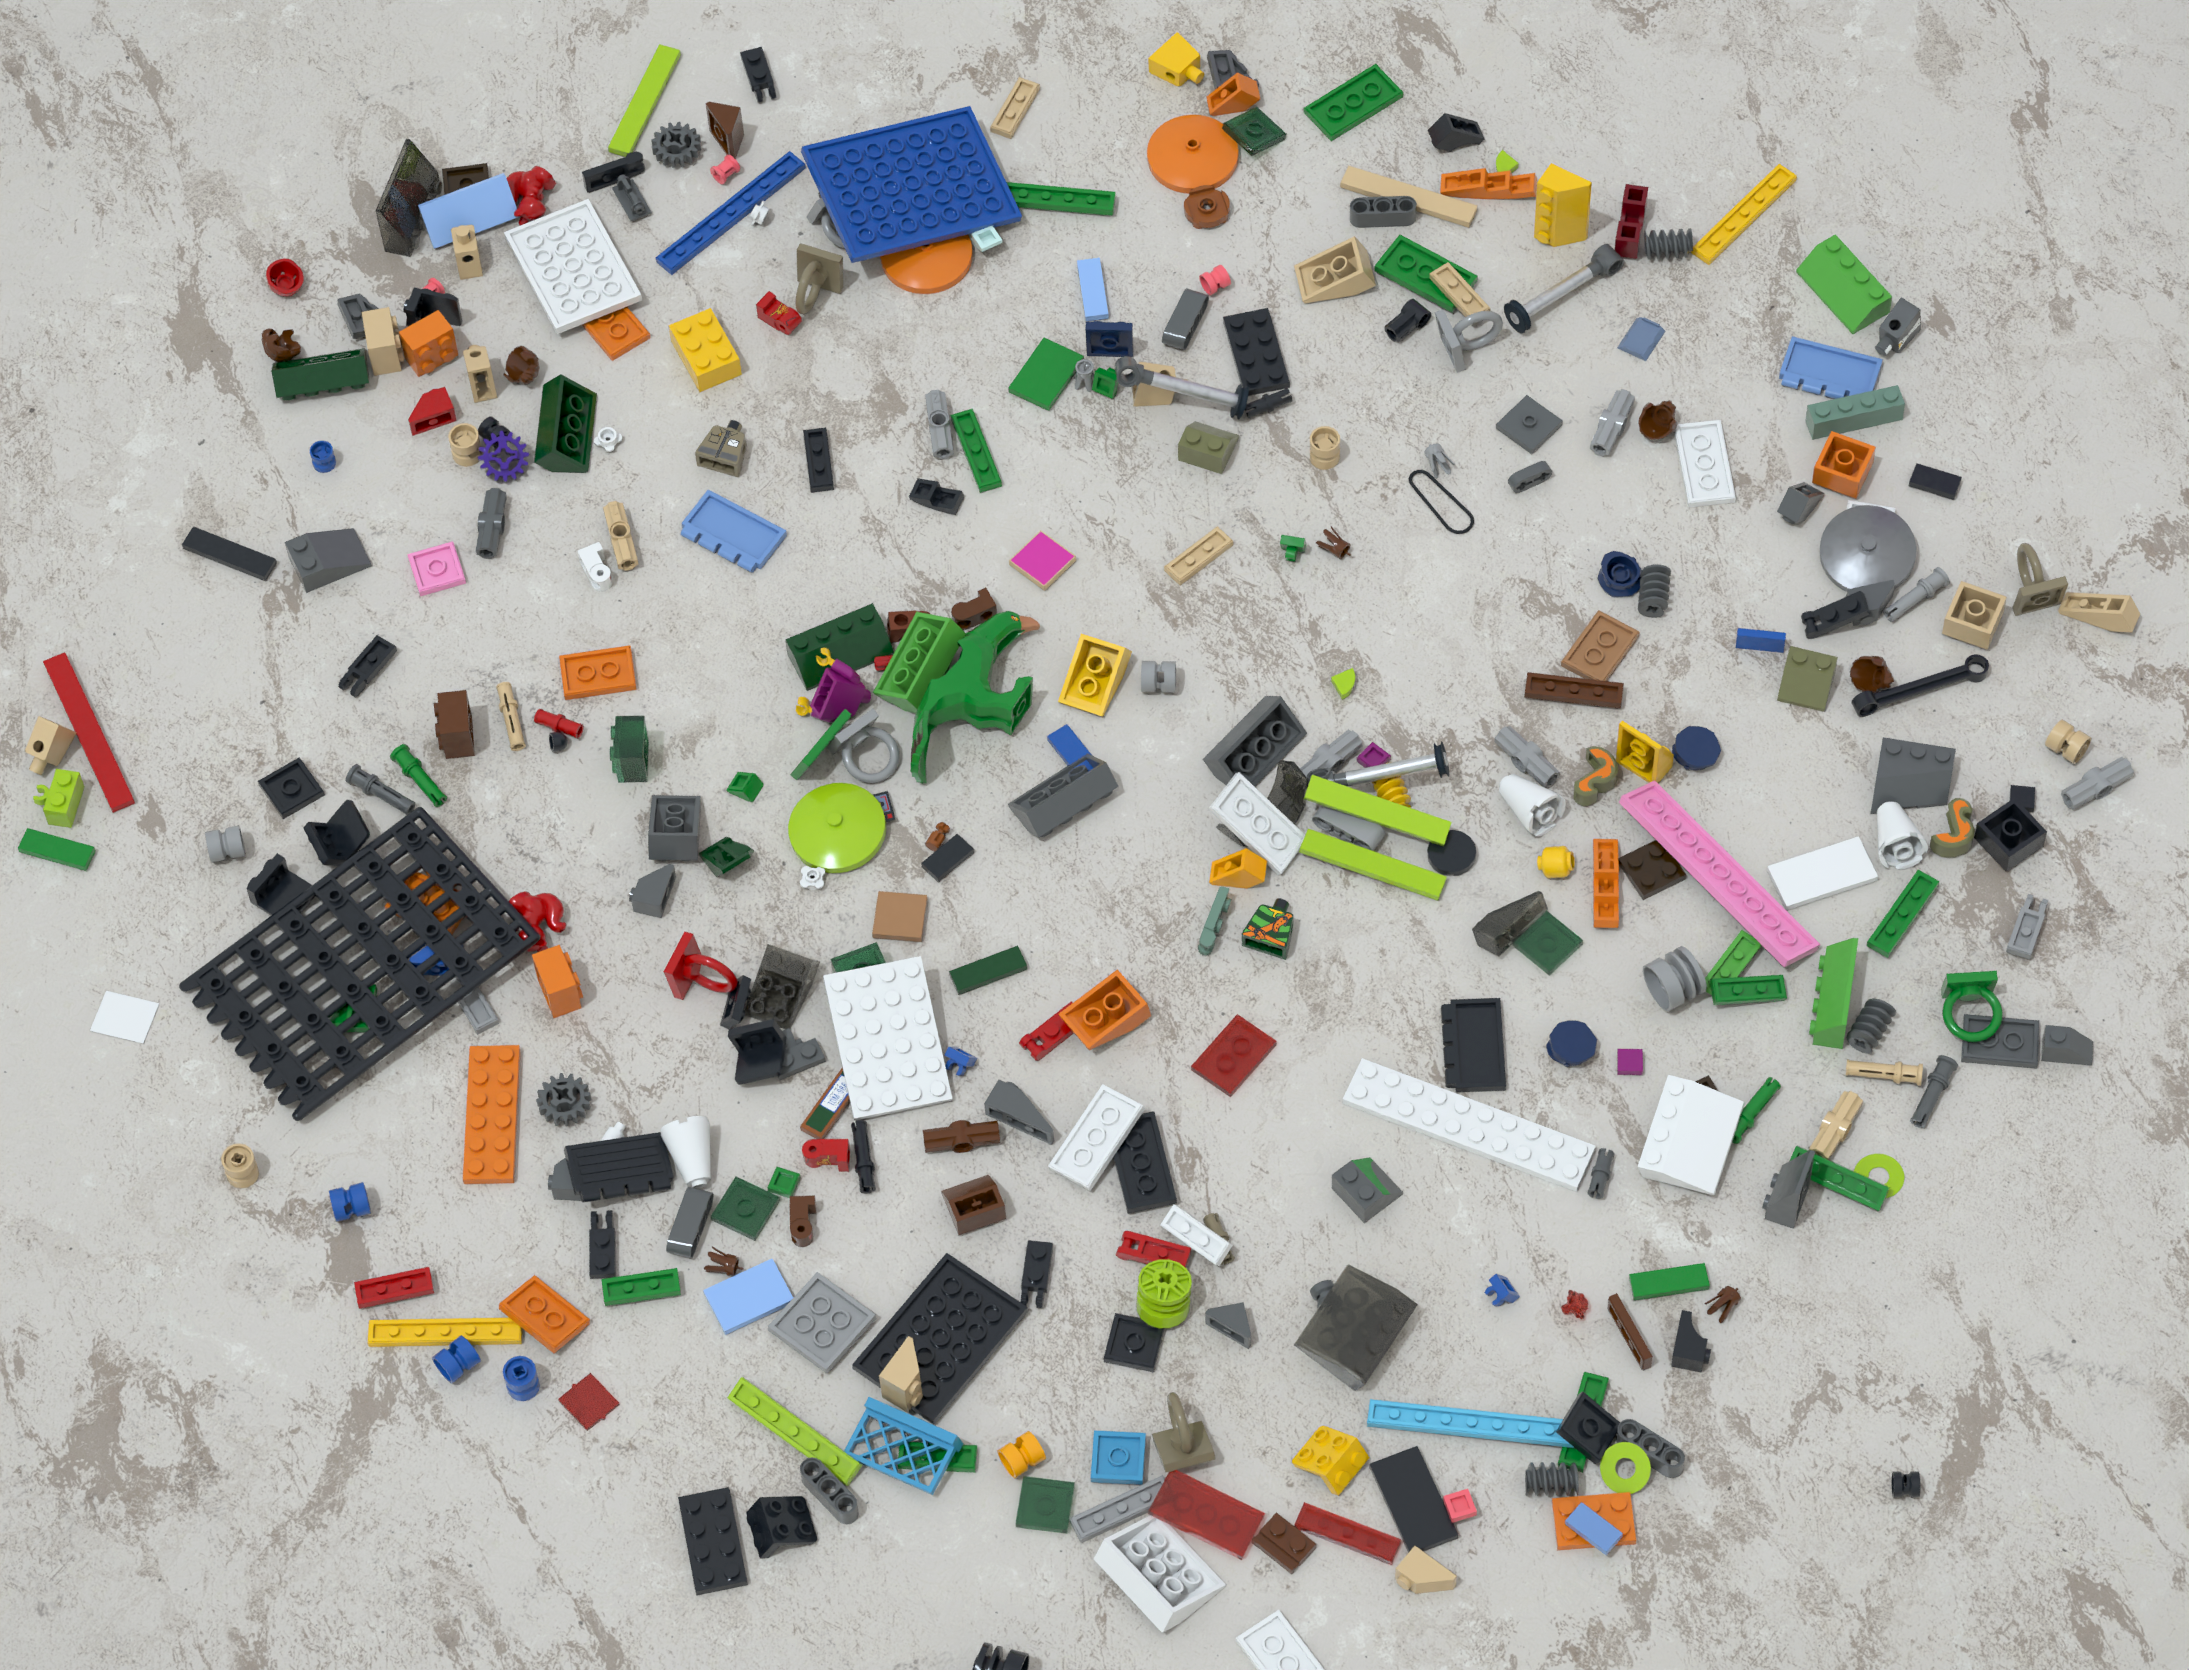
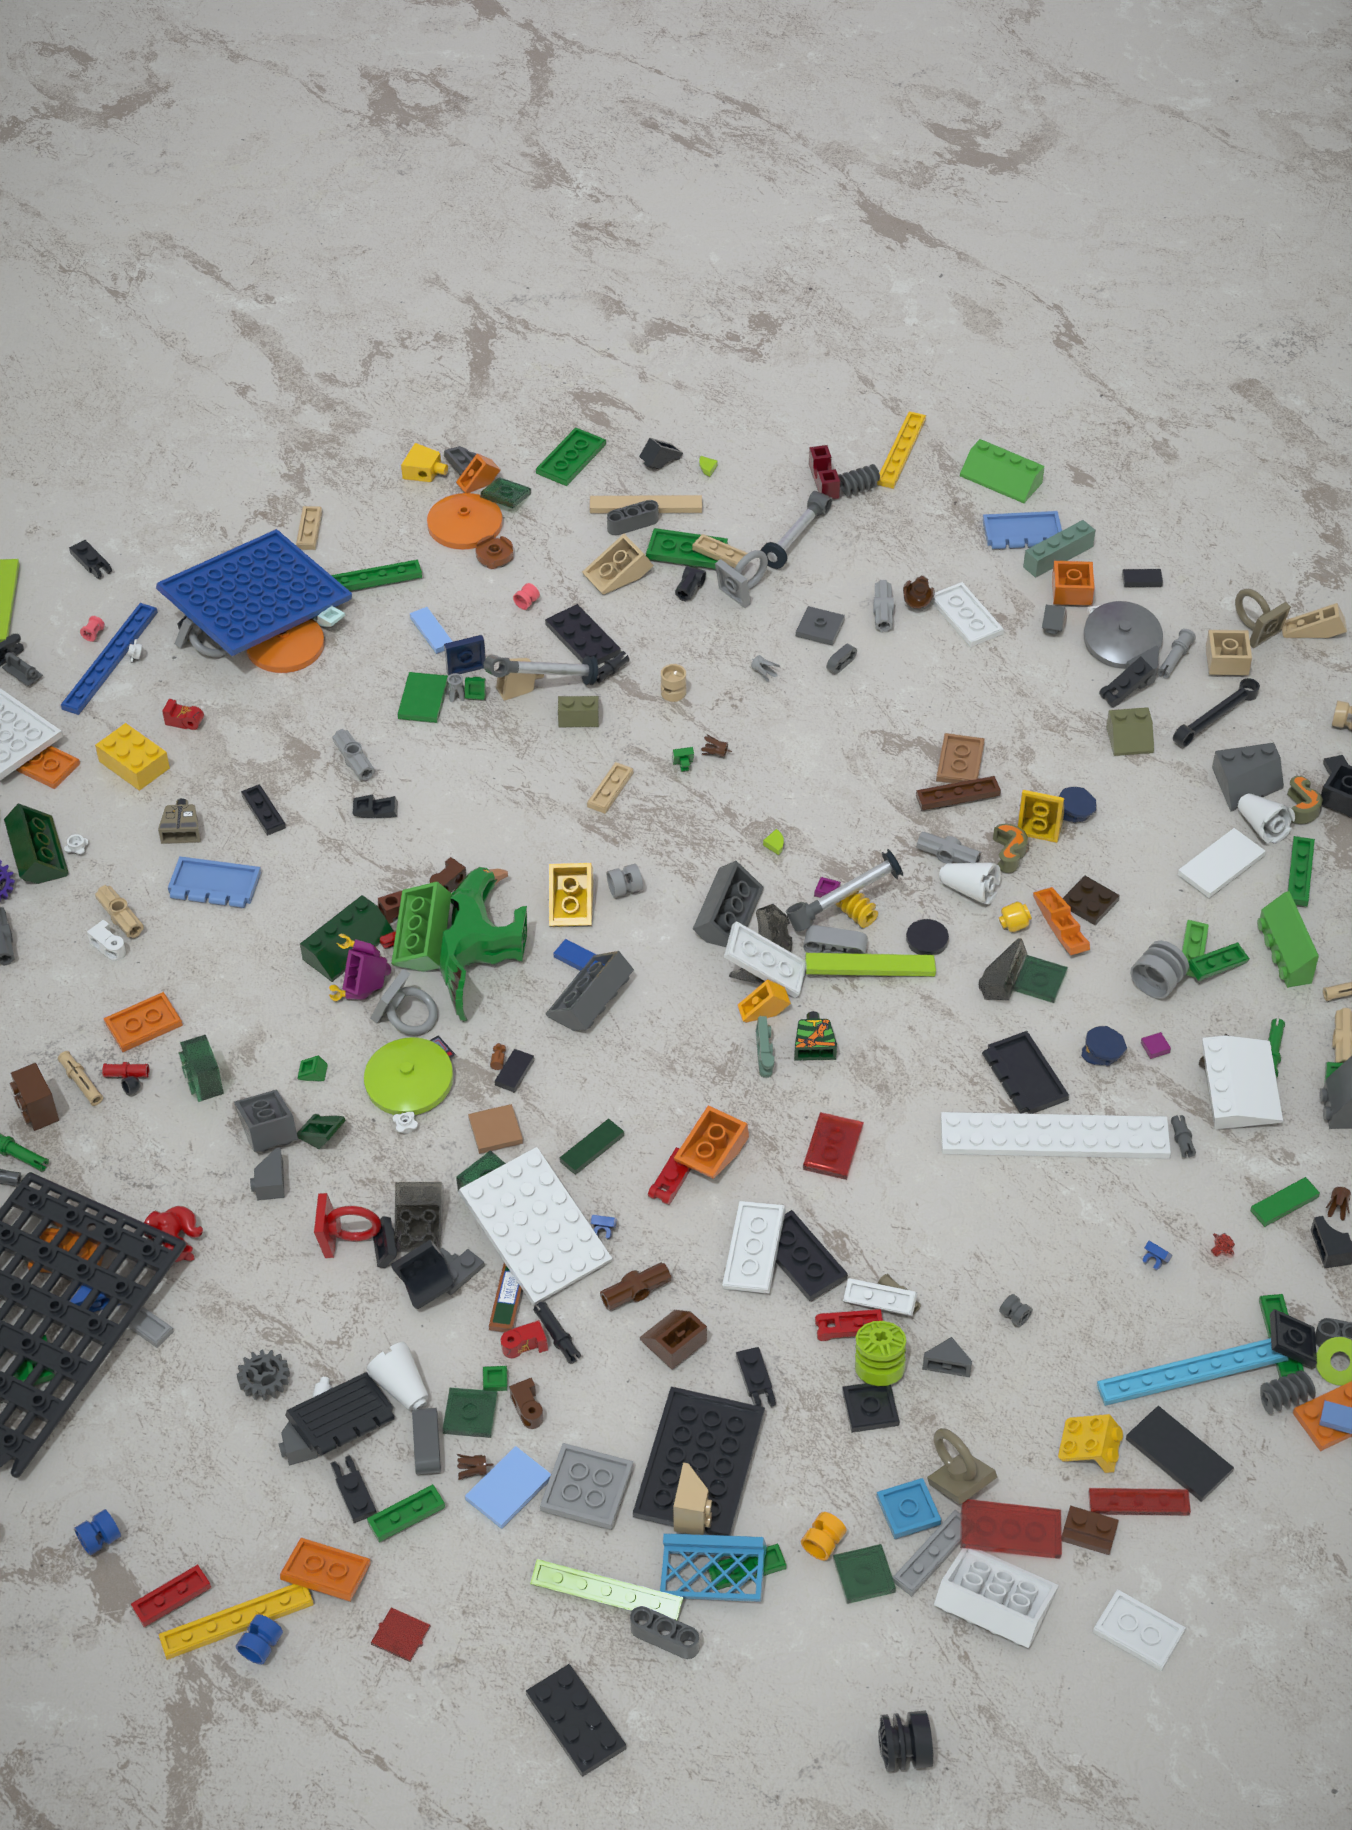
camera: 25 degrees left, 10 degrees down
(491, 1114) = (200, 1411): orange plate -> none
(521, 1378) = (329, 1634): blue wheel -> none
(557, 980) = (216, 1275): orange brick -> none
(676, 144) = (43, 622): dark grey gear -> none
(726, 126) = (79, 596): reddish brown slope -> none
(780, 1522) = (631, 1679): black bracket -> none
(817, 269) = (204, 673): dark tan tile -> none
(821, 744) = (367, 1014): green tile -> none
(976, 450) = (392, 766): green tile -> none
(1013, 1108) = (676, 1249): dark grey slope -> none
(1042, 560) = (485, 827): dark pink tile -> none
(1185, 319) = (516, 628): dark grey beam -> none
(1334, 754) = (797, 891): light grey piece -> none
(1355, 1326) = (1057, 1324): clear smoke slope -> none
(1364, 1188) = (998, 1213): dark grey slope -> none
(1377, 810) = (856, 920): lime tile -> none
(1423, 1573) = (1225, 1510): tan slope -> none
(1432, 508) = (783, 689): black piece -> none
(1459, 1505) = (1224, 1441): coral tile -> none
(1485, 185) = (708, 479): orange slope -> none
(1562, 207) = (774, 470): yellow slope -> none
(1619, 574) = (947, 704): dark blue hat -> none
(1629, 1332) = (1279, 1250): reddish brown tile -> none
(1641, 338) = (871, 547): sand blue piece -> none
(1654, 590) = (980, 706): dark grey piece -> none
(1719, 873) = (1147, 885): bright pink plate -> none
(1760, 640) = (1080, 716): blue tile -> none
(1870, 1025) = (1329, 958): dark grey piece -> none
(1871, 674) = (1176, 713): reddish brown hair -> none
(1899, 327) = (1059, 492): dark grey torso -> none

